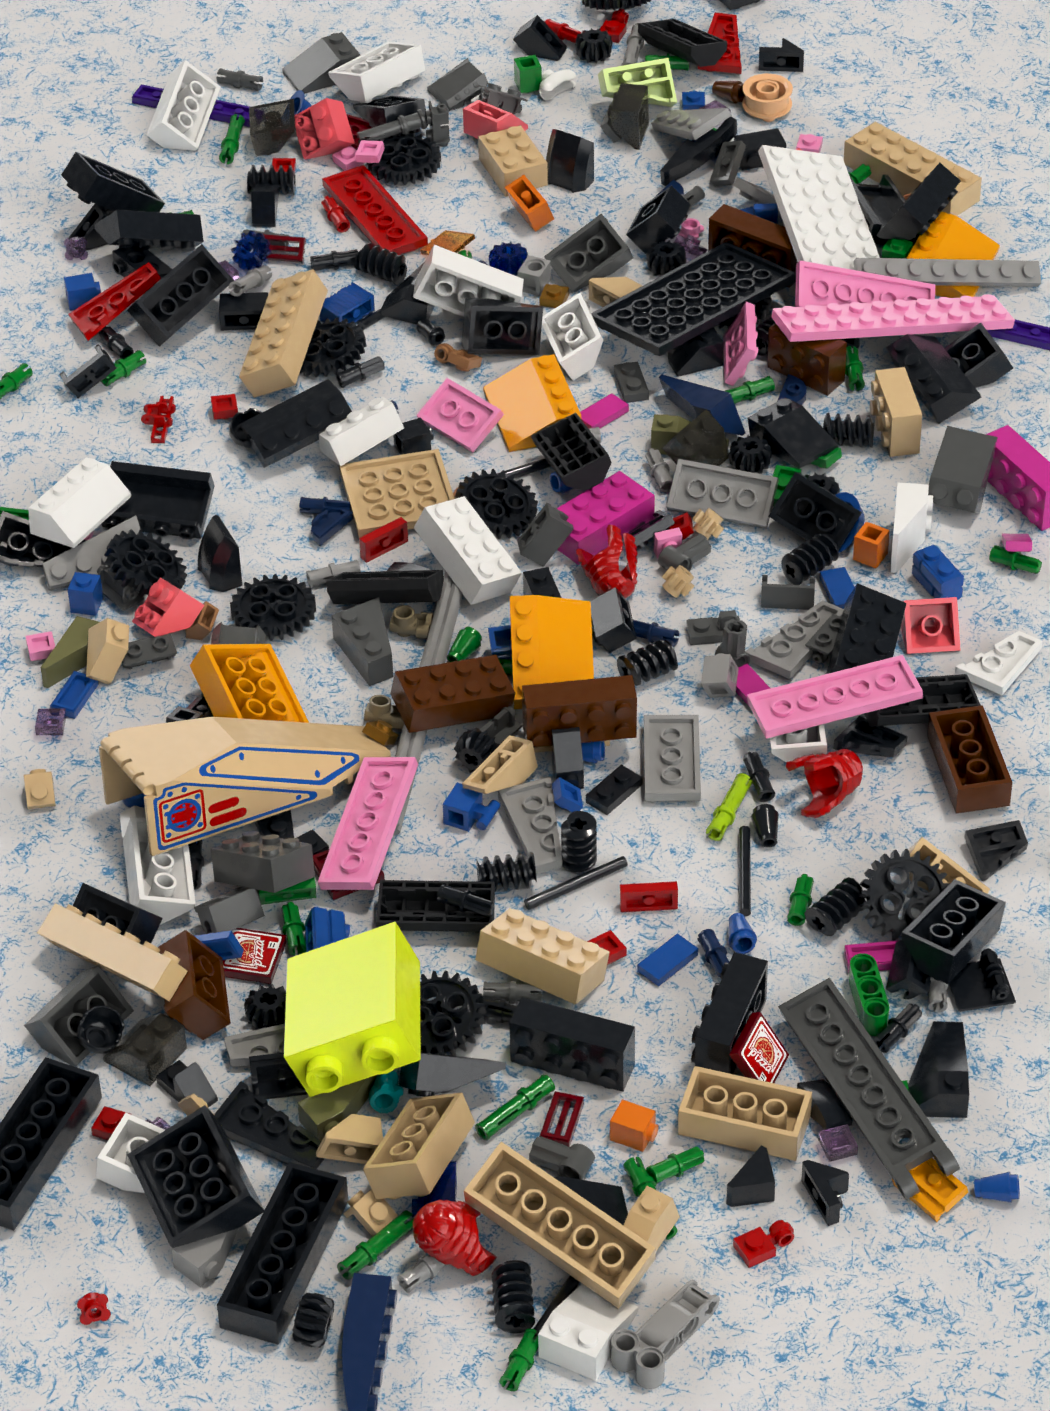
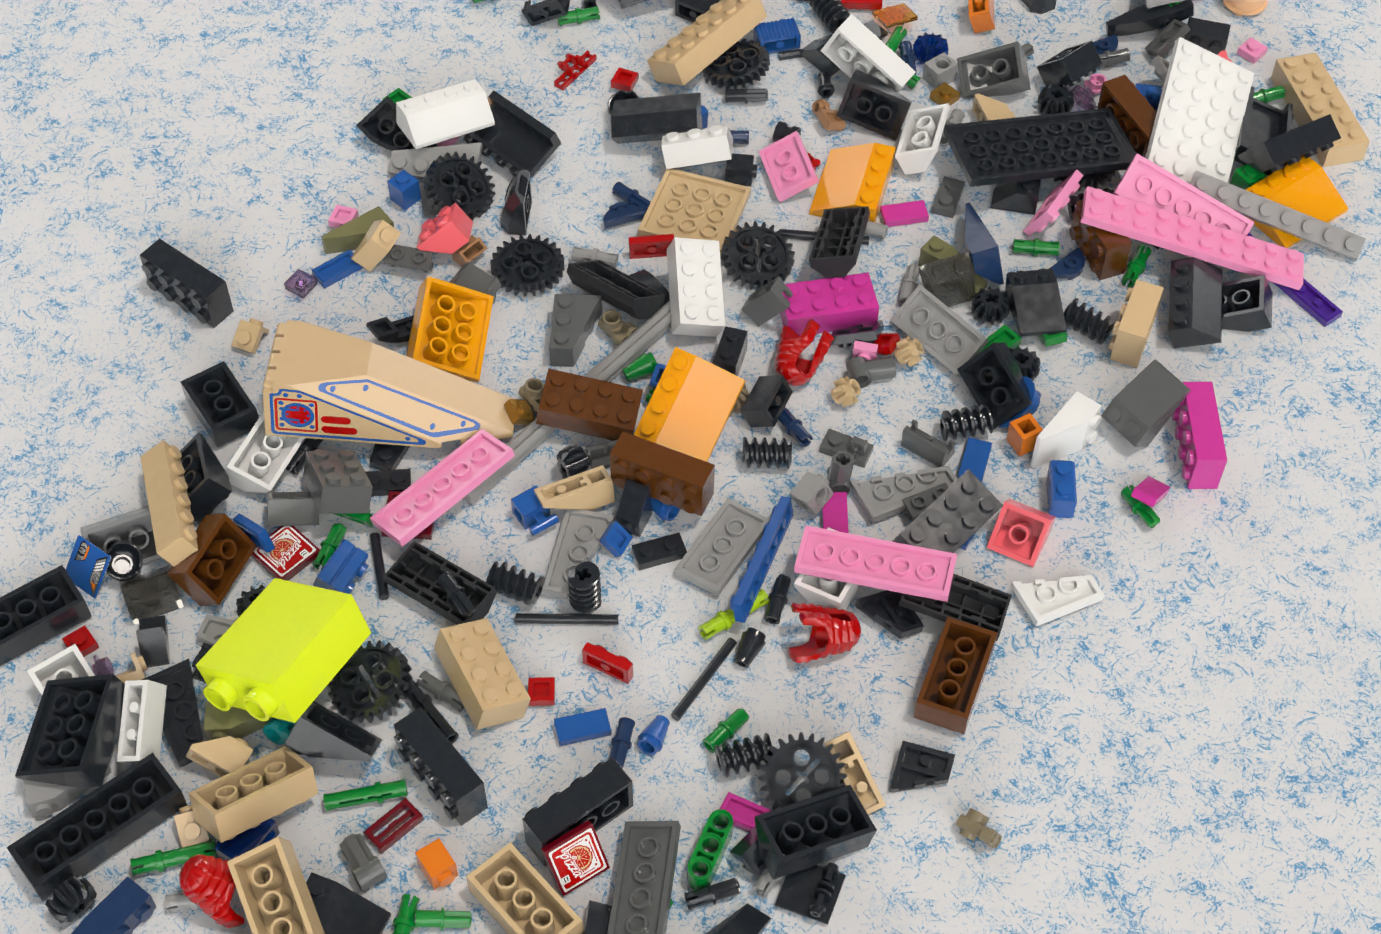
camera: 30 degrees right, 10 degrees up
(64, 1044) = (87, 566): none -> blue sticker
(70, 855) = (220, 403): none -> black brick
(251, 1145) = (141, 720): none -> white brick
(350, 919) = (379, 565): none -> black bar
(428, 388) = (782, 130): none -> black wheel
(722, 752) = (761, 562): none -> blue plate

